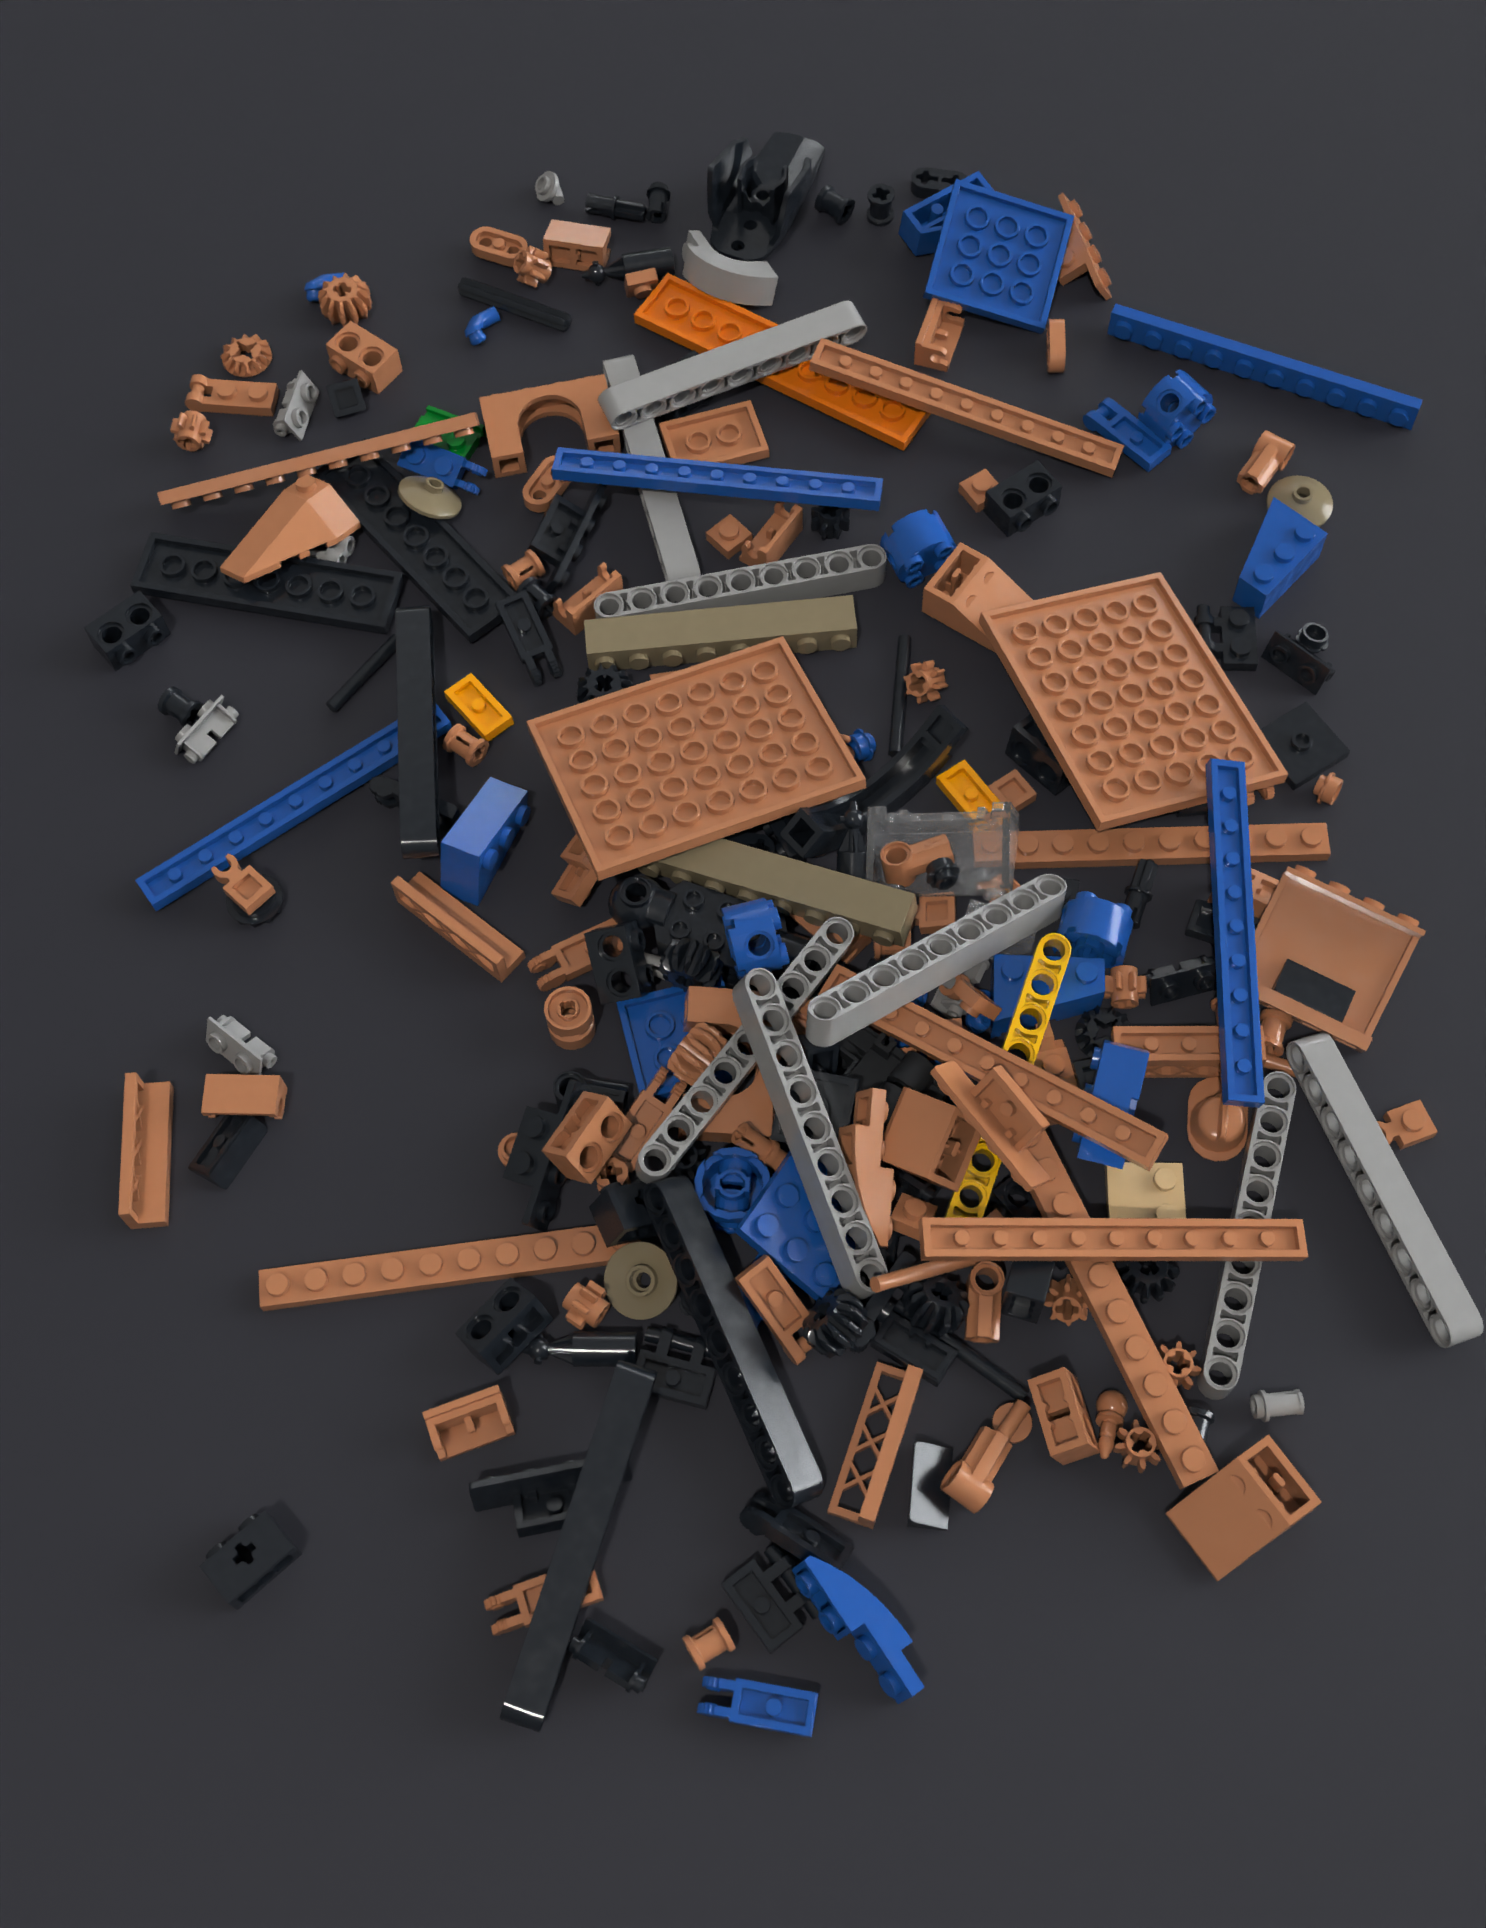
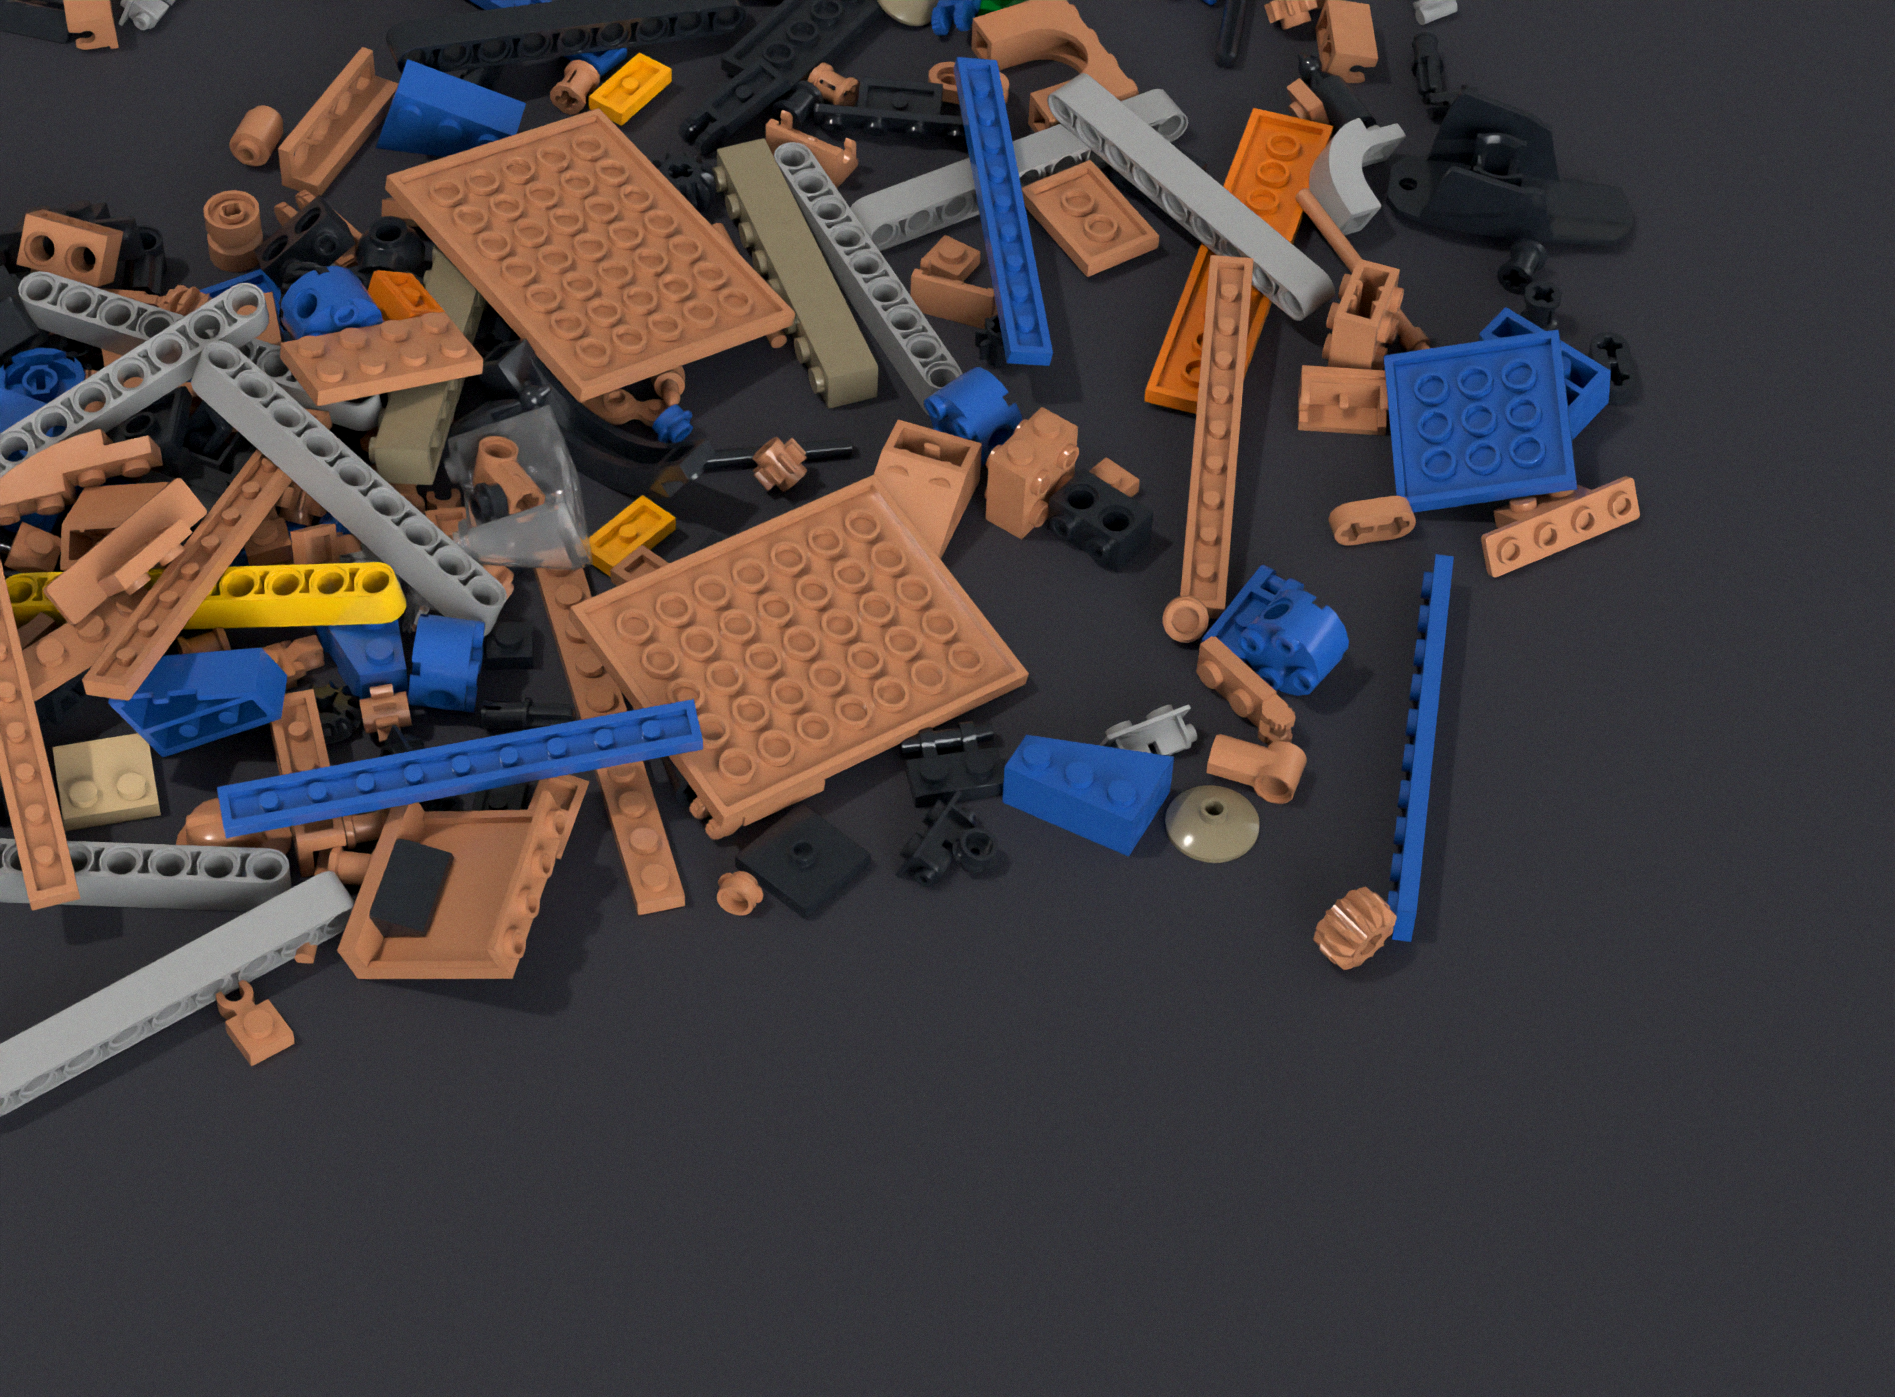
camera: 70 degrees right, 15 degrees down
(451, 987) = (257, 136): none -> nougat brick
(728, 888) = (400, 296): none -> orange slope
(813, 908) = (381, 358): none -> nougat plate
(886, 283) = (1411, 337): none -> nougat bar
(890, 295) = (1364, 317): none -> nougat brick
(984, 520) = (1029, 471): none -> nougat brick
(1126, 470) = (1185, 618): none -> nougat tile
(1200, 452) = (1245, 691): none -> nougat hinge
(1224, 517) = (1162, 729): none -> light grey hinge
(1424, 437) = (1354, 928): none -> nougat gear

